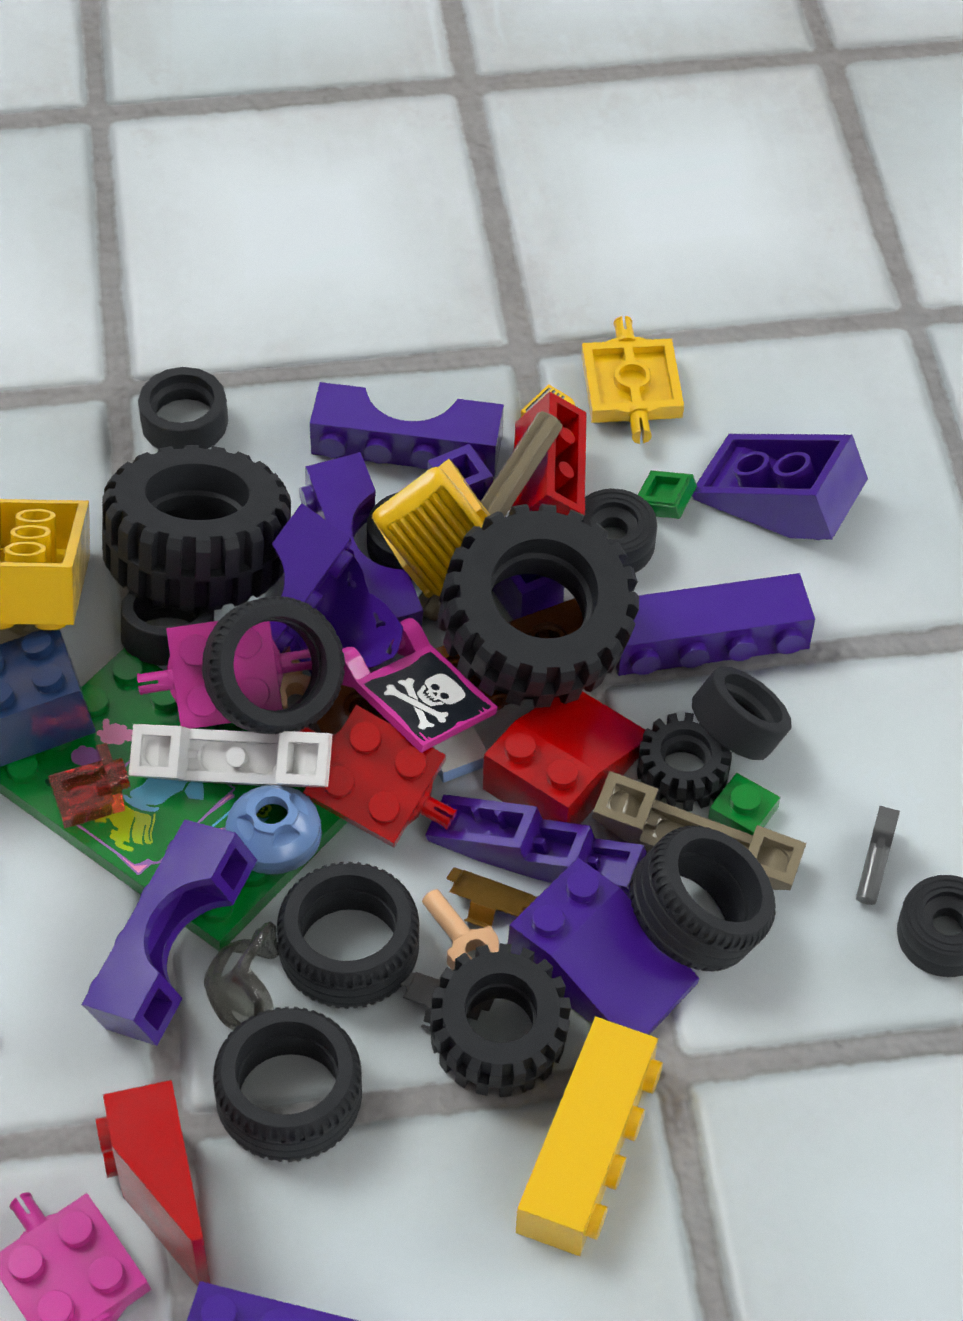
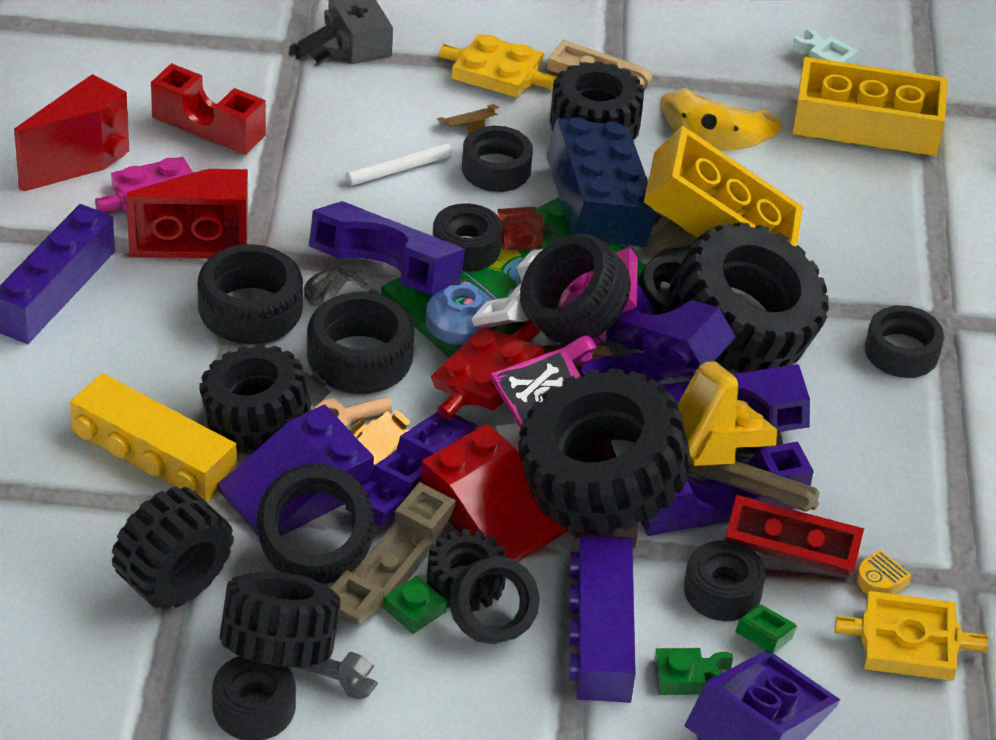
camera: 100 degrees right, 10 degrees down
(109, 821) = (475, 222): none -> black tyre
(349, 423) = (872, 437): dark purple arch -> none
(740, 555) = (685, 671): none -> green plate
(805, 1031) = (172, 547): none -> black tyre
(883, 927) = (279, 619): none -> black tyre

